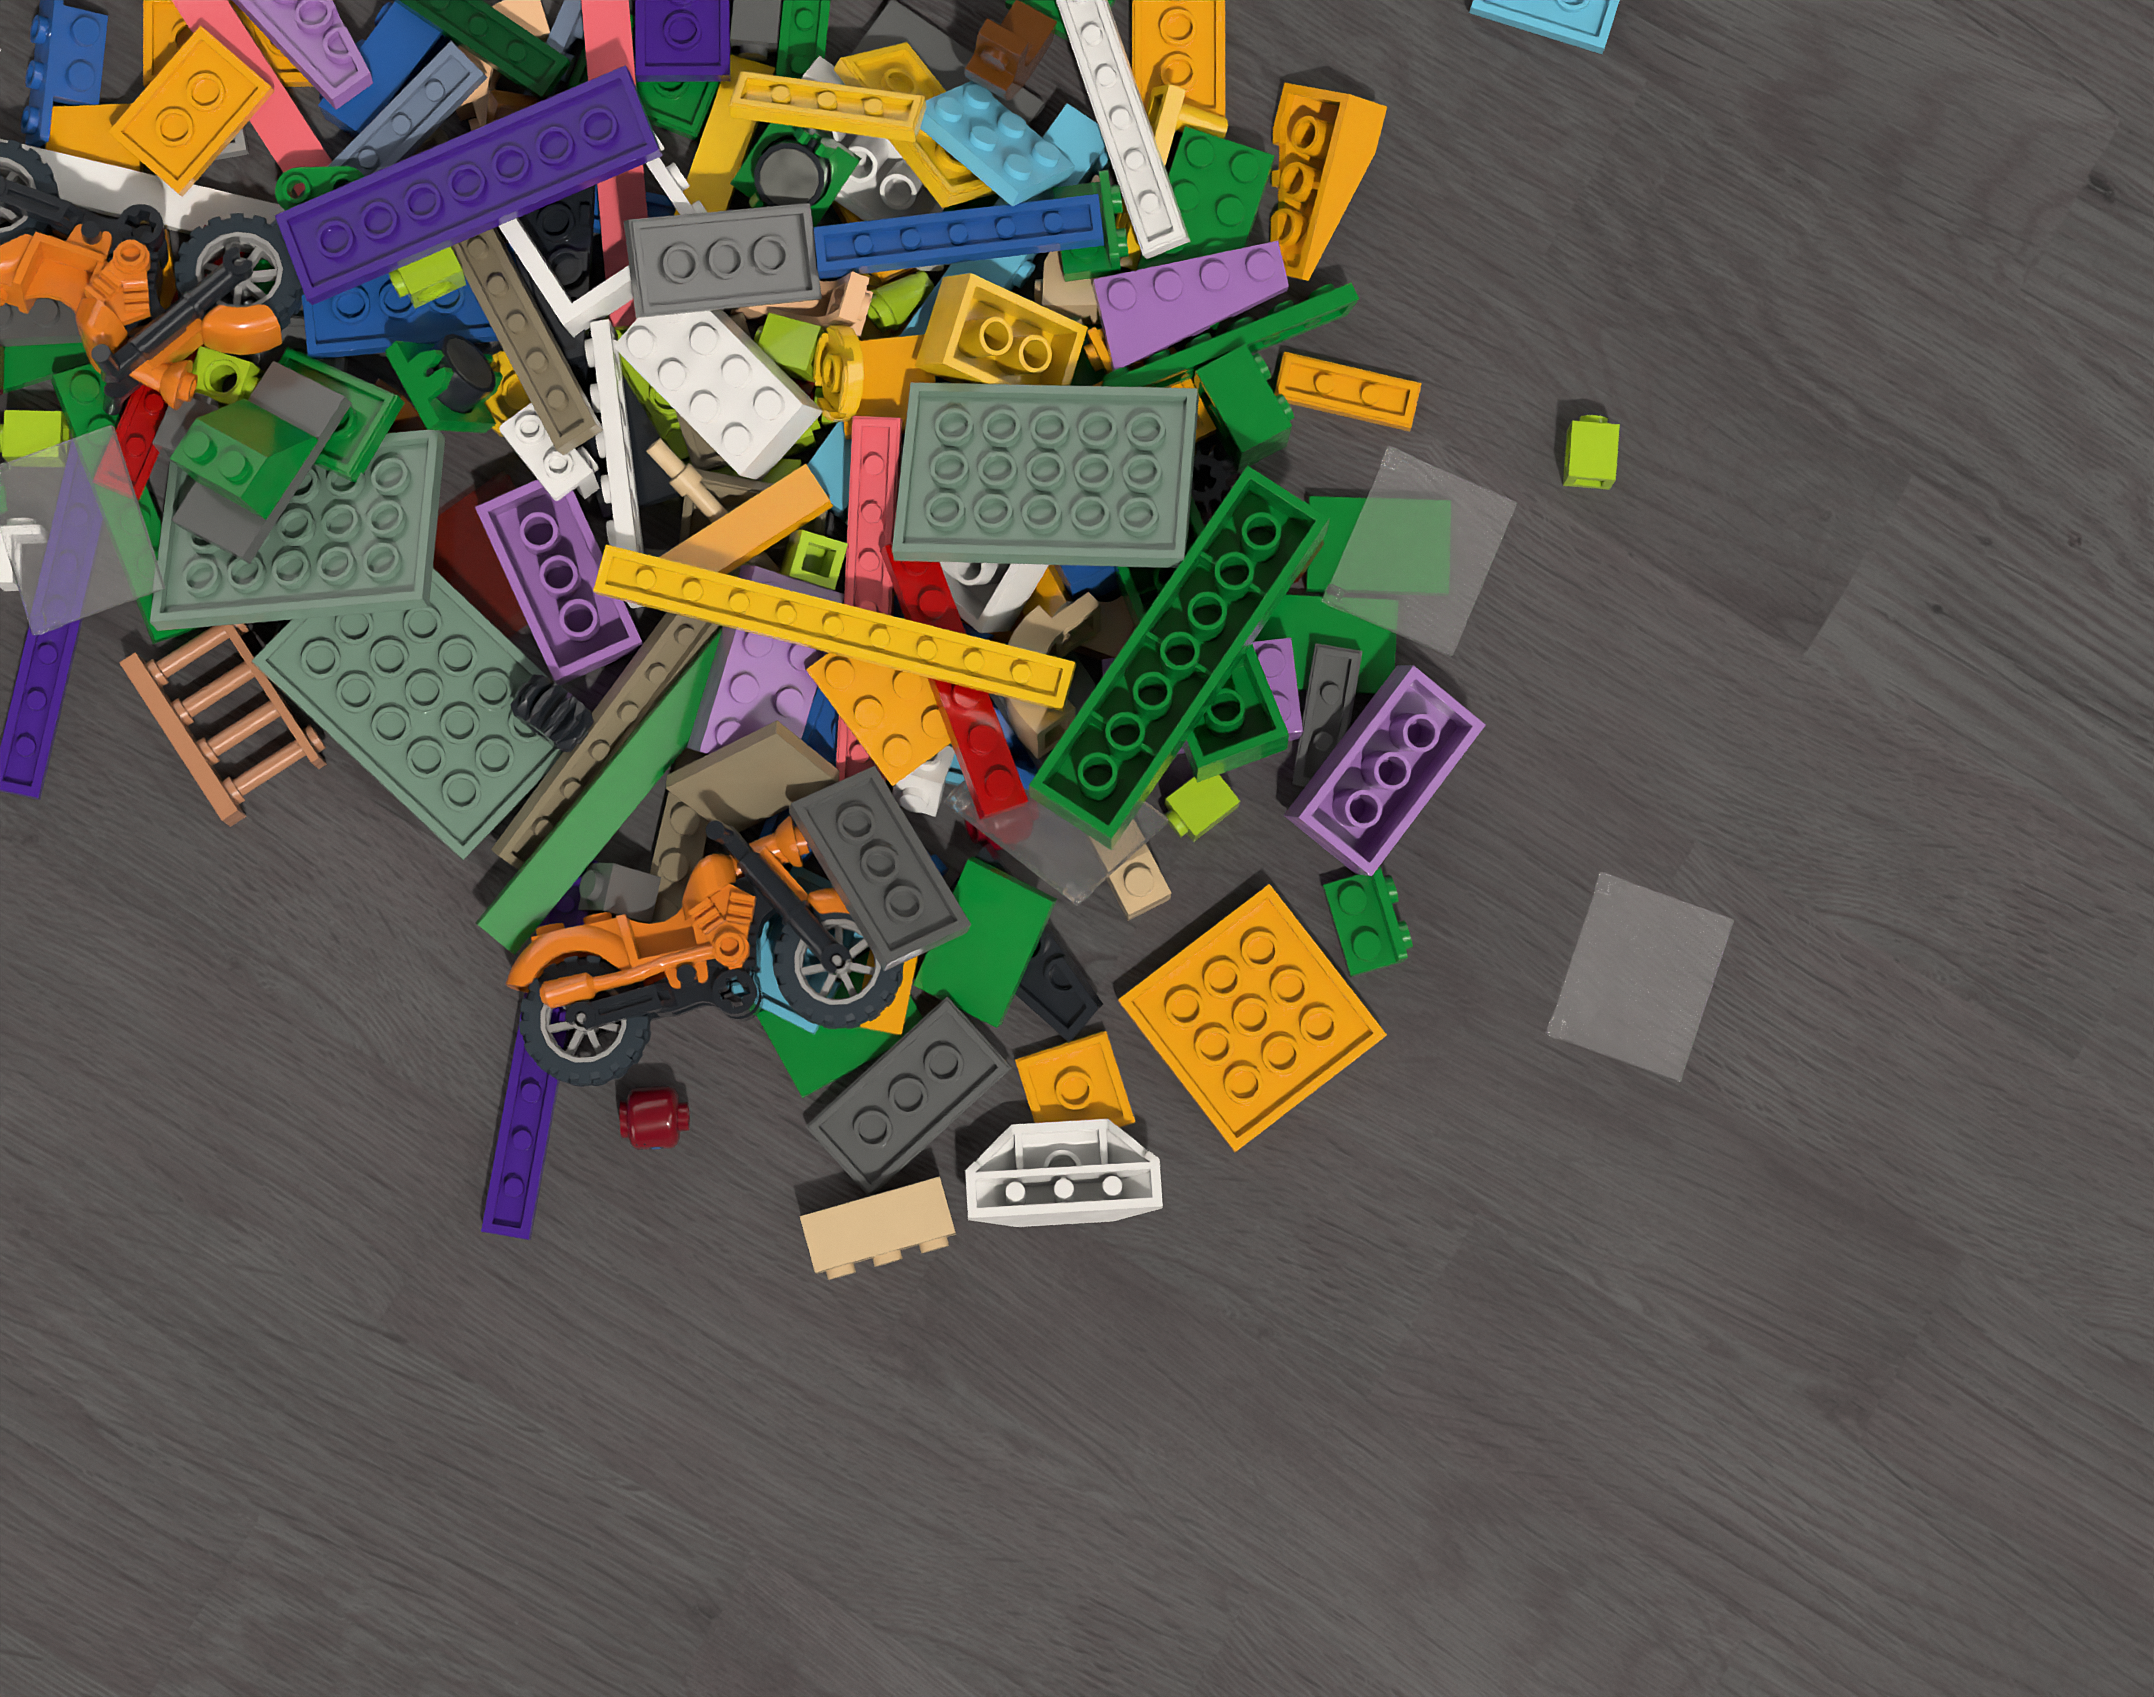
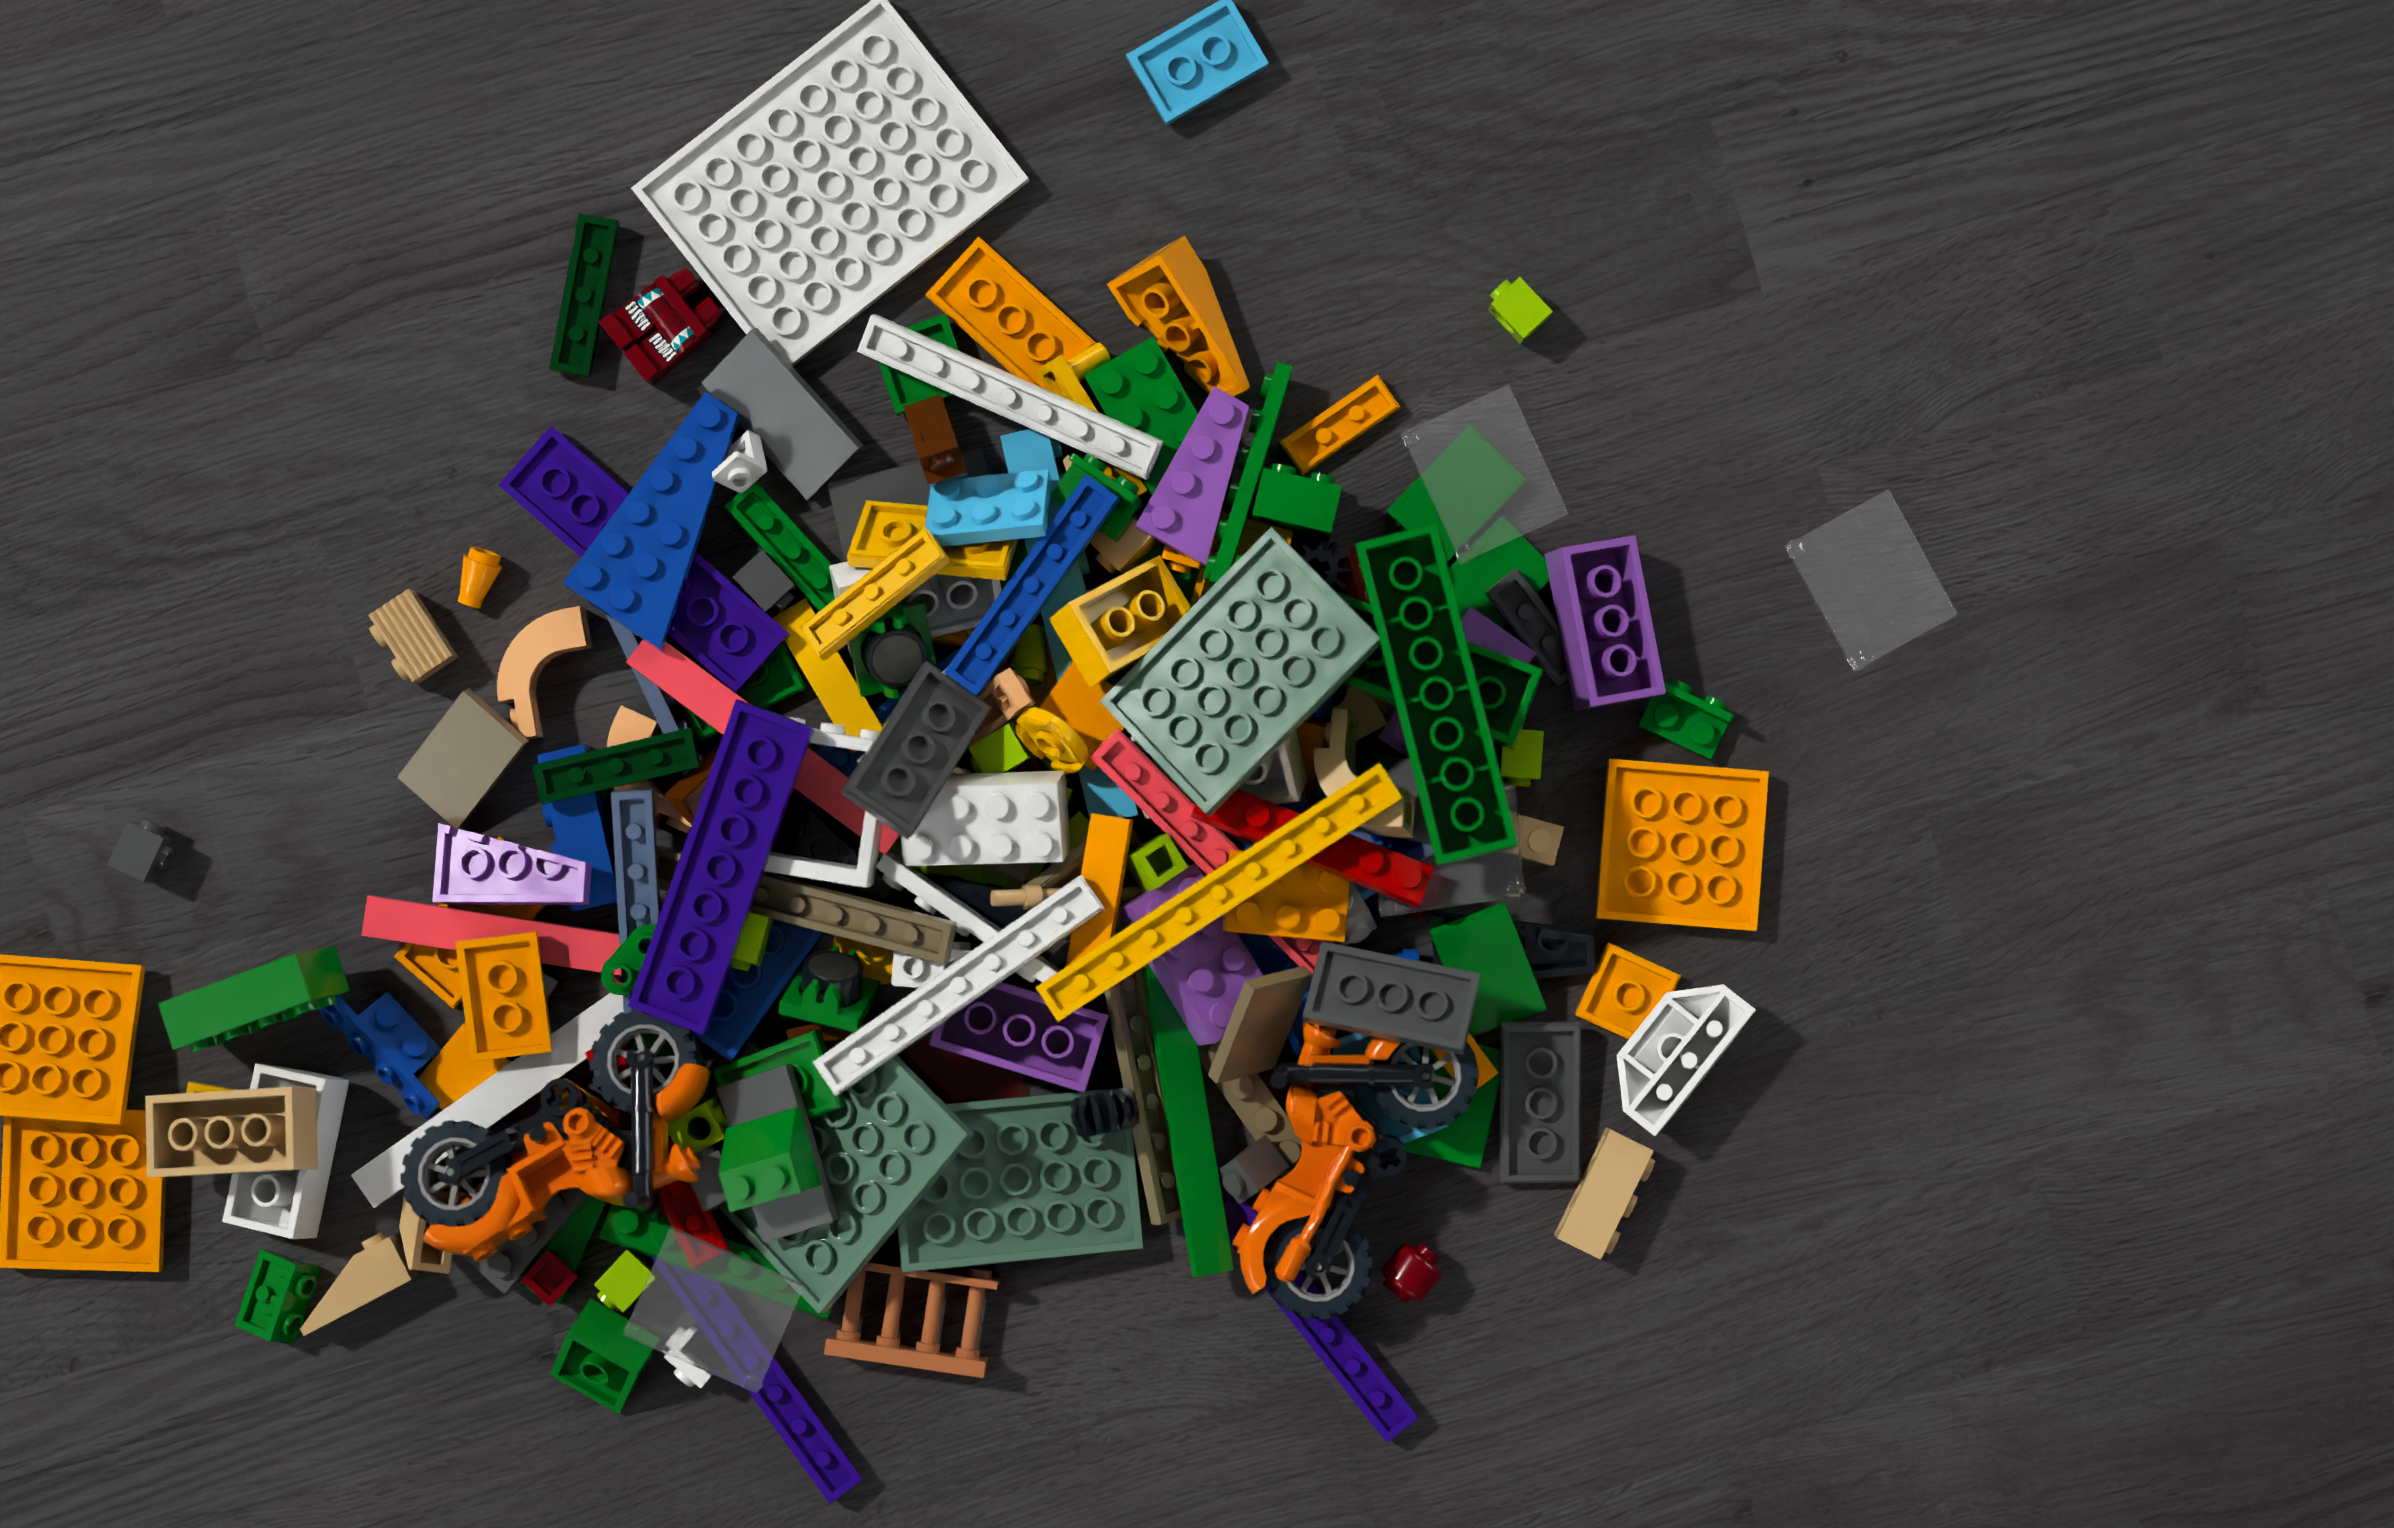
camera: 40 degrees left, 5 degrees up
(549, 481) = (958, 985): none -> white tile

